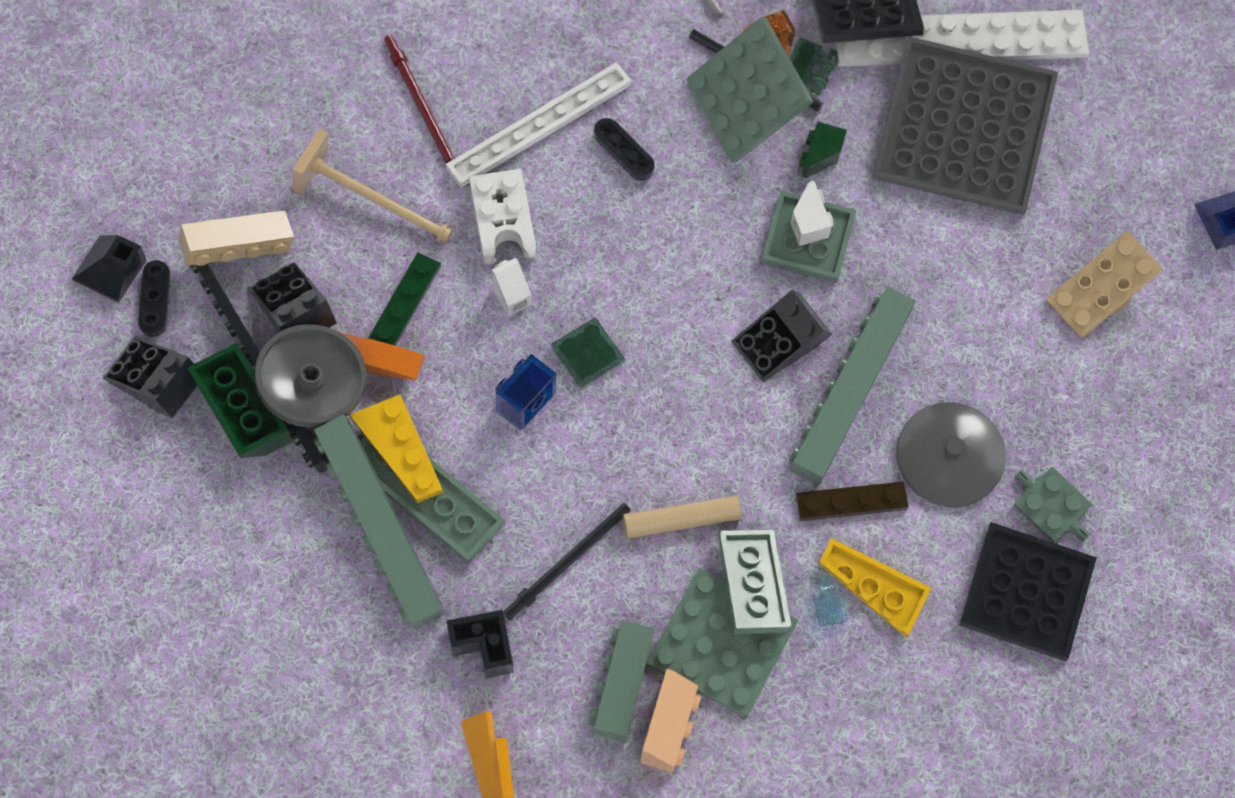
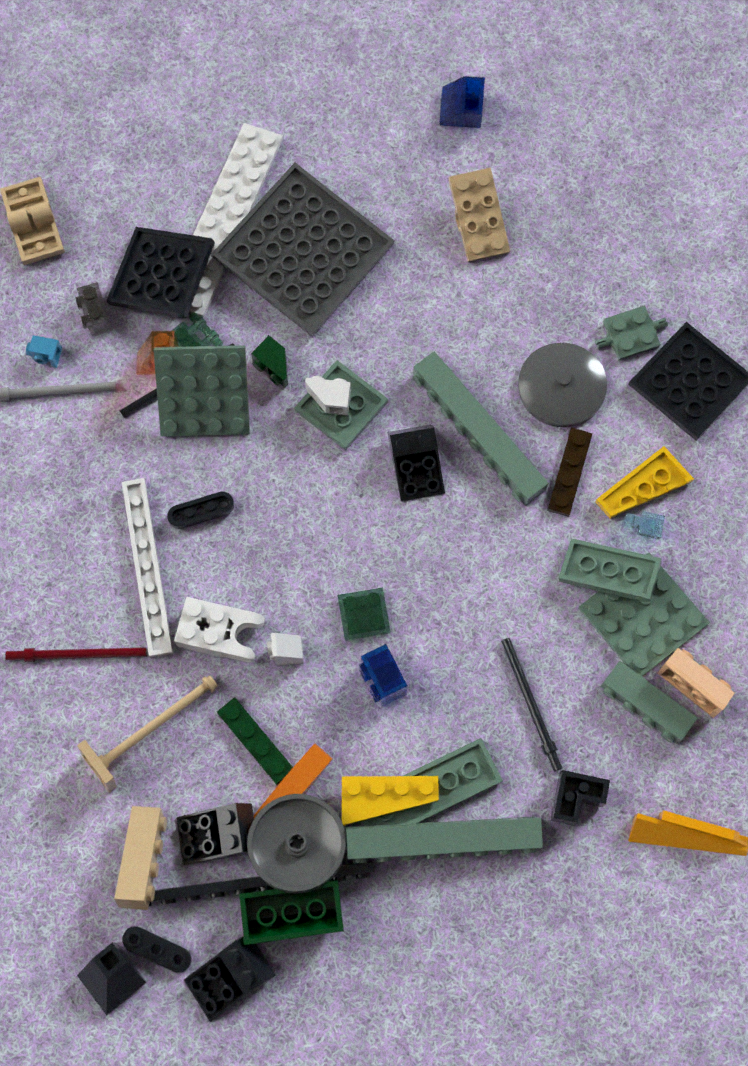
camera: 60 degrees left, 5 degrees up
(682, 516) = (532, 601): tan piece -> none

